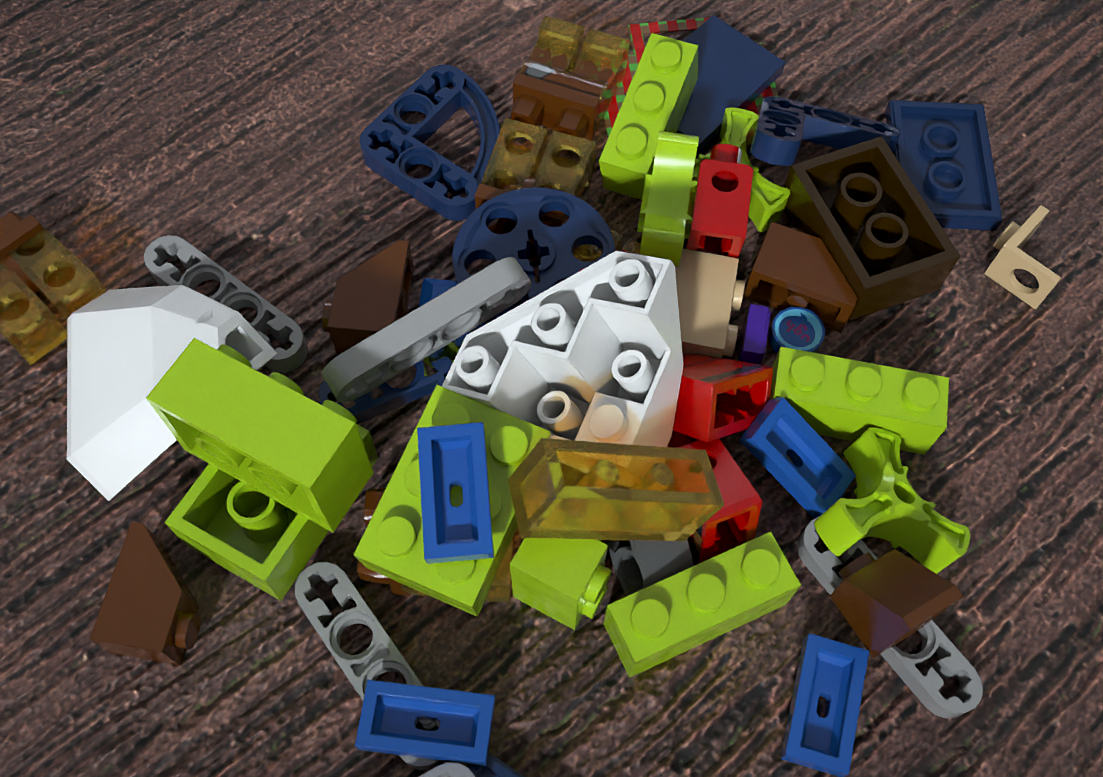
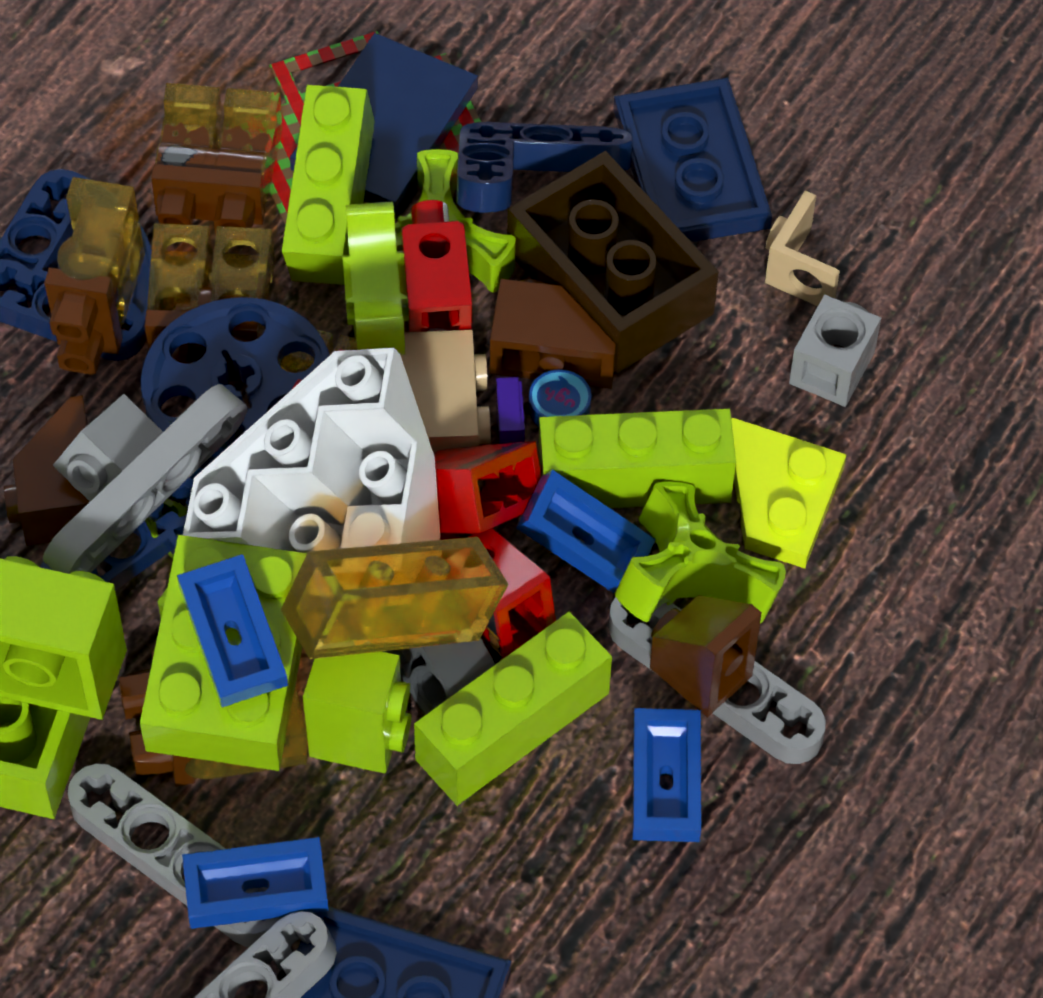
camera: 15 degrees left, 5 degrees down
(409, 286) = (106, 447): none -> light grey brick
(443, 144) = (94, 273): none -> hips
(975, 460) = (782, 491): none -> neon yellow wing
(1042, 344) = (829, 369): none -> light grey brick

